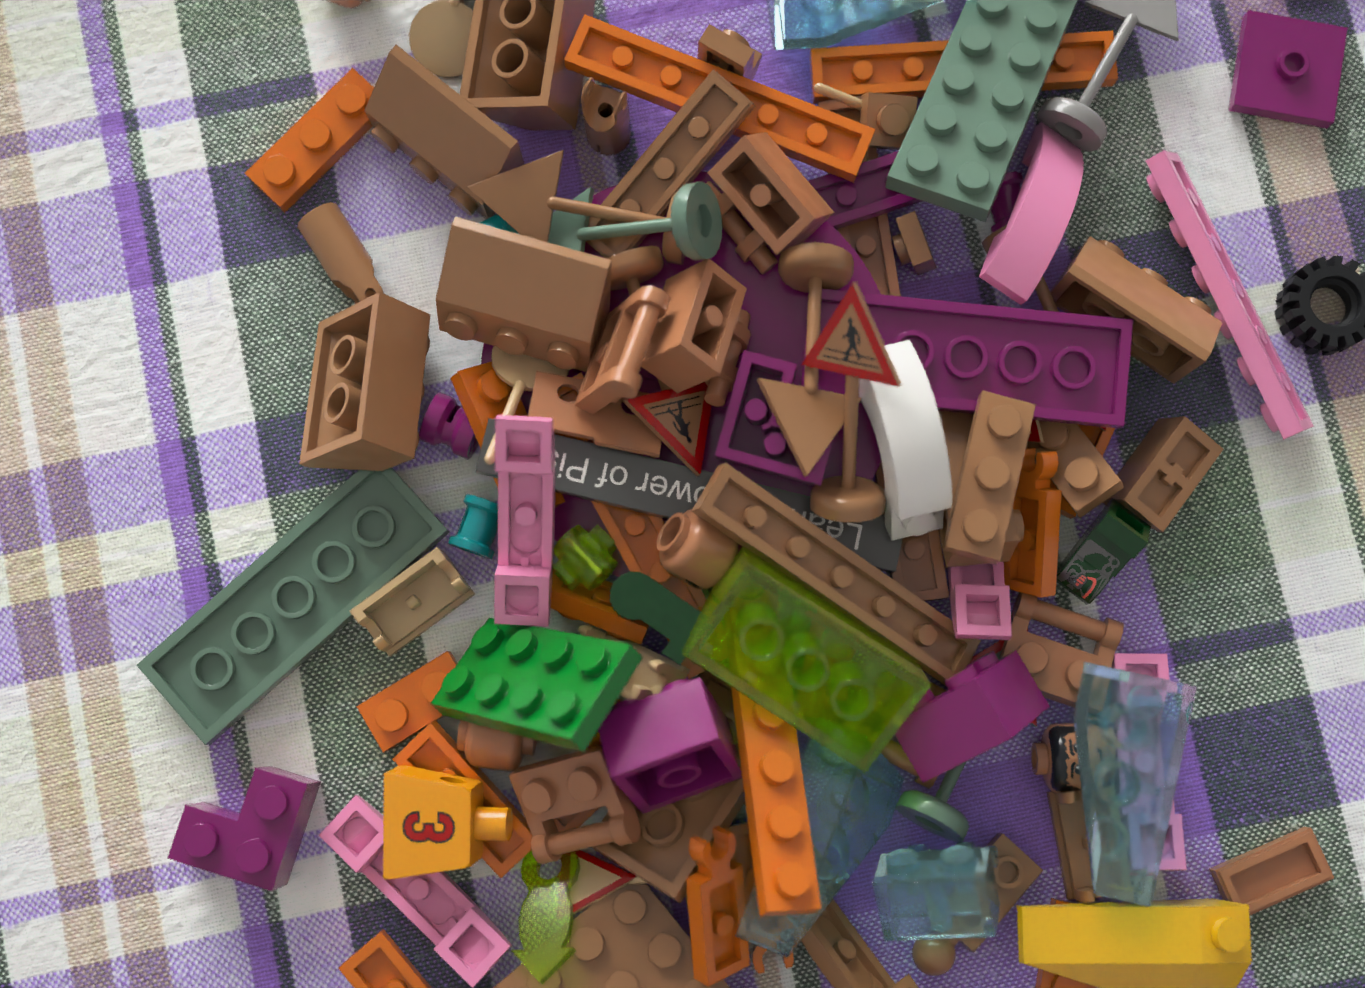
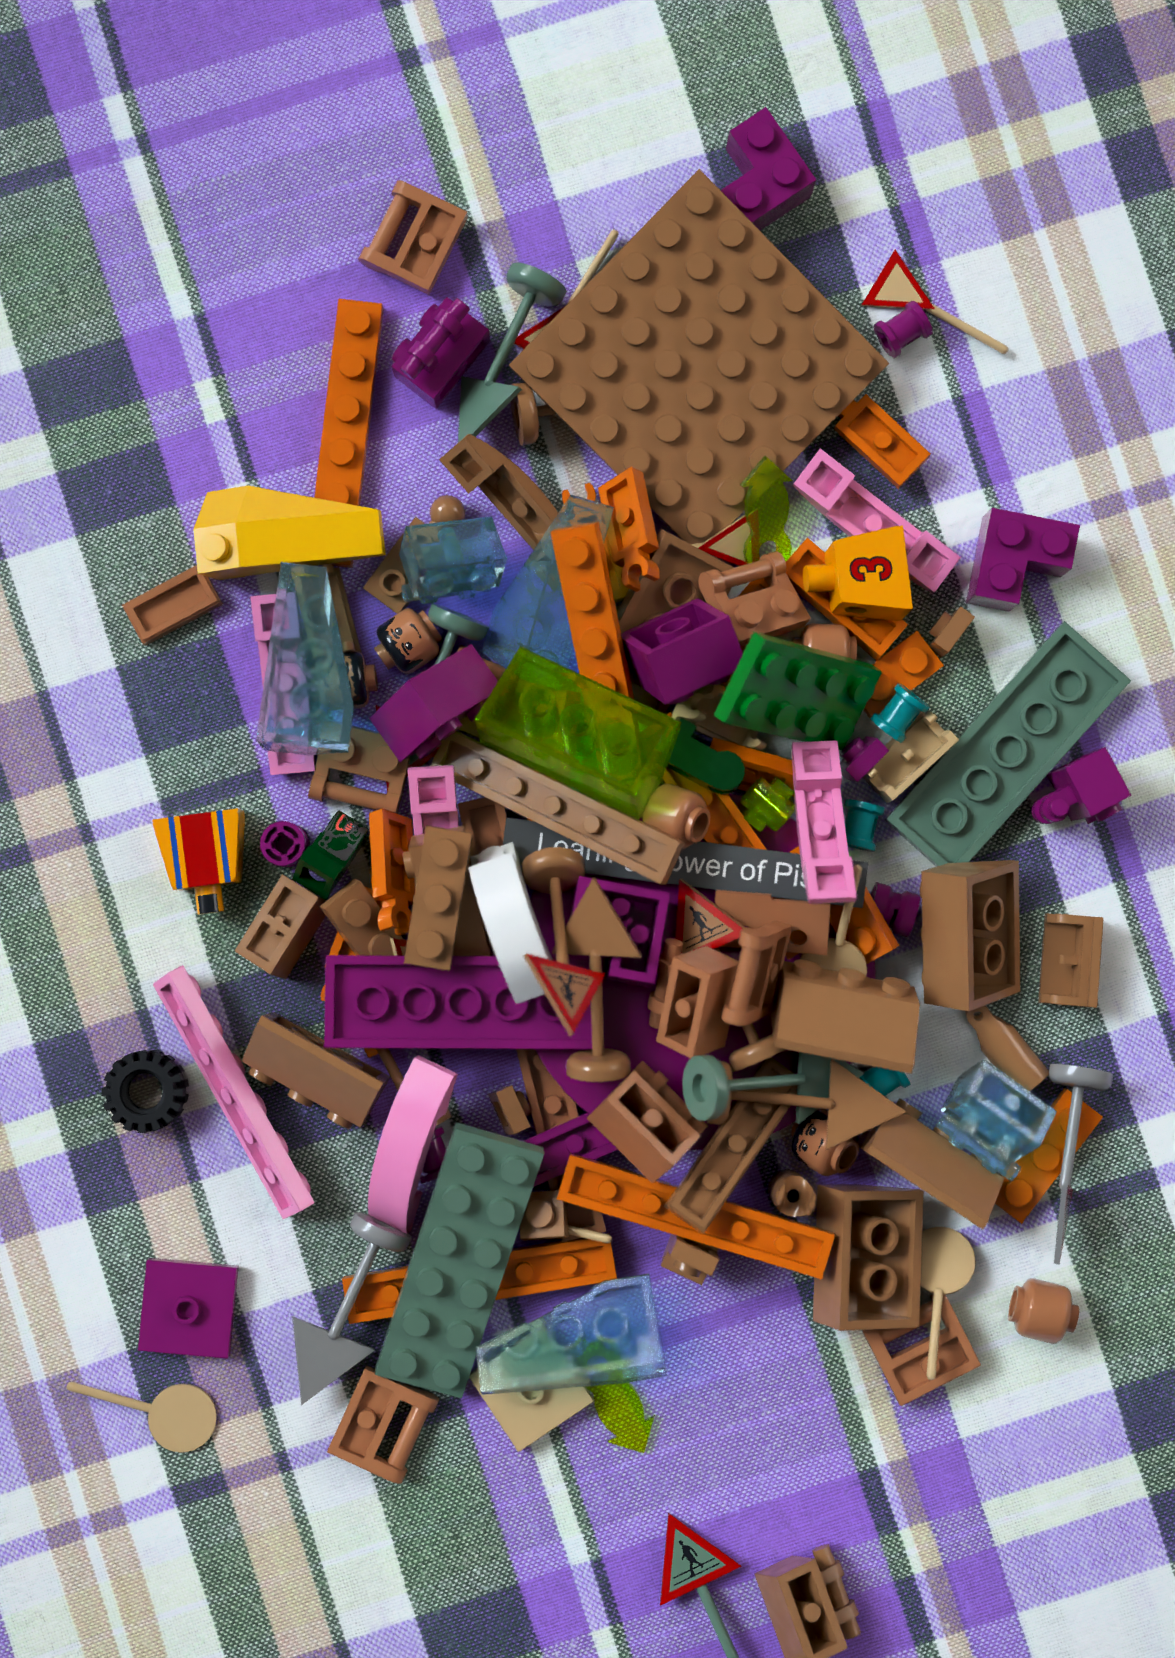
camera: 170 degrees right, 5 degrees up
(208, 540) = (1083, 789): none -> magenta brick
(255, 348) = (1071, 960): none -> medium nougat hinge
(263, 212) = (1079, 1079): none -> light grey piece
(344, 747) = (948, 630): none -> medium nougat plate
(361, 183) = (994, 1118): none -> clear light blue brick
(415, 652) = (900, 713): none -> teal bush
(467, 605) = (861, 757): none -> magenta plate
(578, 168) = (810, 1146): none -> nougat head
(994, 798) = (407, 641): none -> nougat head
(1144, 572) = (290, 845): none -> magenta wheel
(1251, 568) = (203, 853): none -> torso

